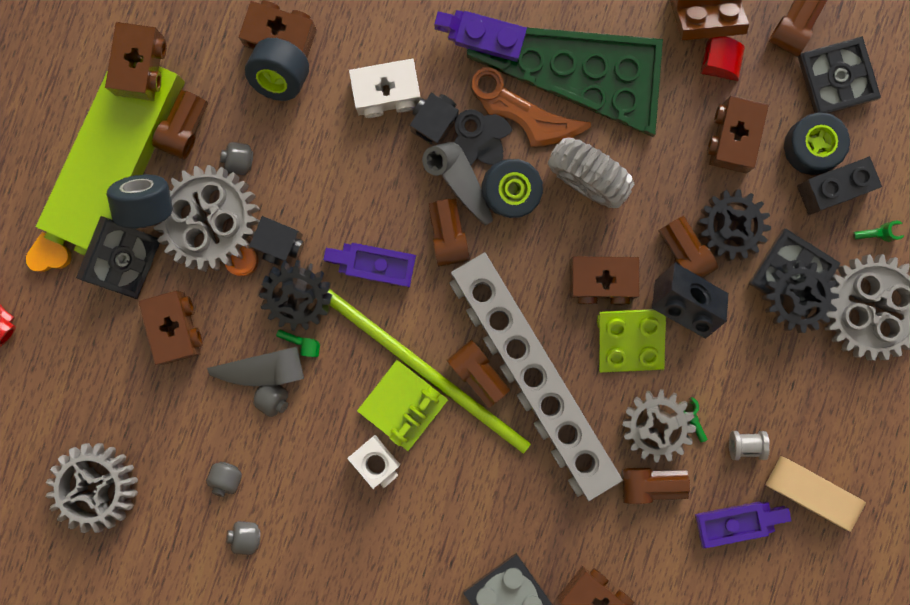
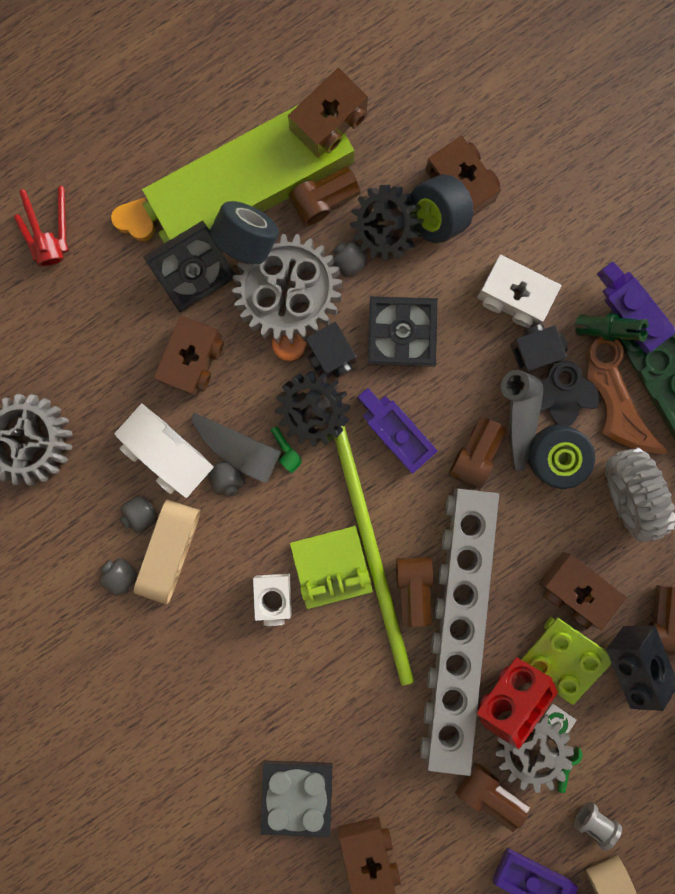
camera: 35 degrees right, 0 degrees up
(205, 415) = (163, 451): none -> white brick
(236, 95) = (384, 239): none -> black gear
(267, 489) = (167, 551): none -> tan beam
(320, 184) = (402, 331): none -> black piece
(475, 61) = (612, 327): none -> dark green pin
(623, 398) = (526, 705): none -> red brick
(667, 385) = (556, 714): none -> white sticker

